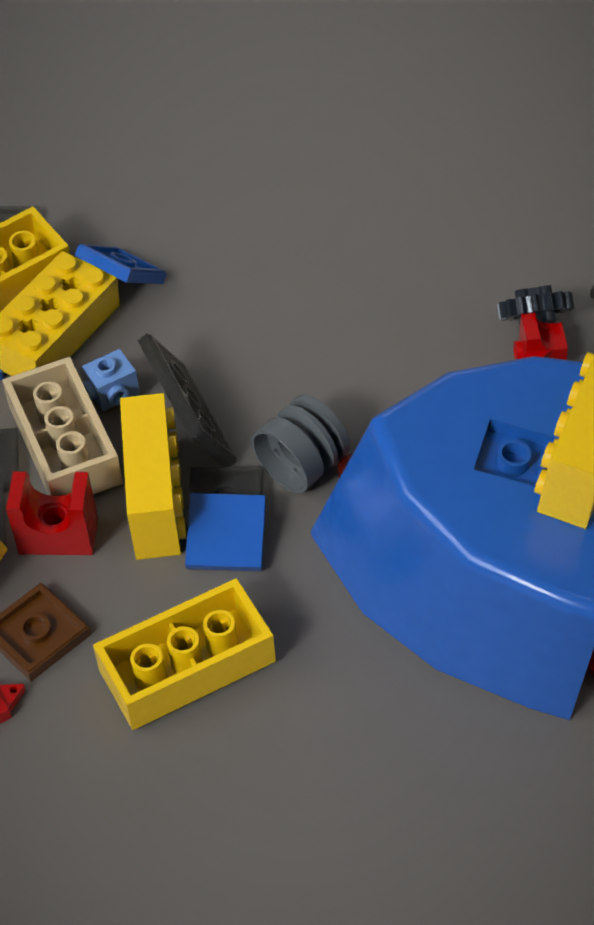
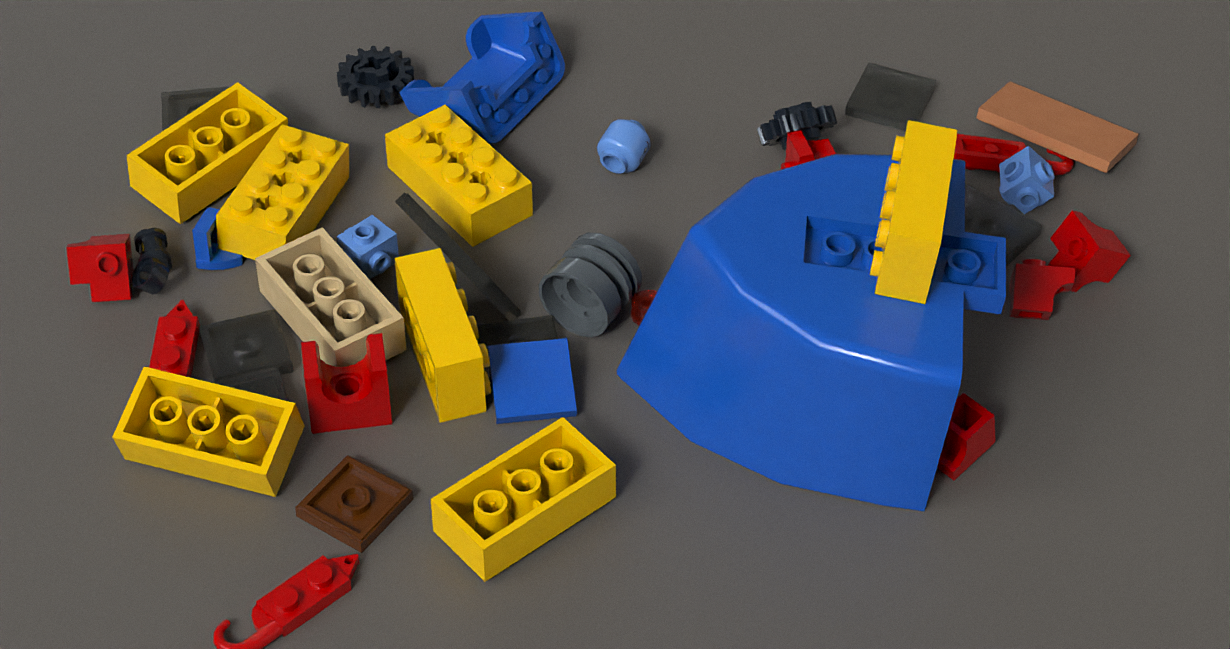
camera: 15 degrees left, 5 degrees down
(121, 264) = (342, 131): blue tile -> none
(164, 211) = (374, 76): none -> black gear
(213, 317) = (459, 175): none -> yellow brick
(284, 224) = (508, 74): none -> blue windscreen
(370, 306) = (623, 146): none -> medium blue head

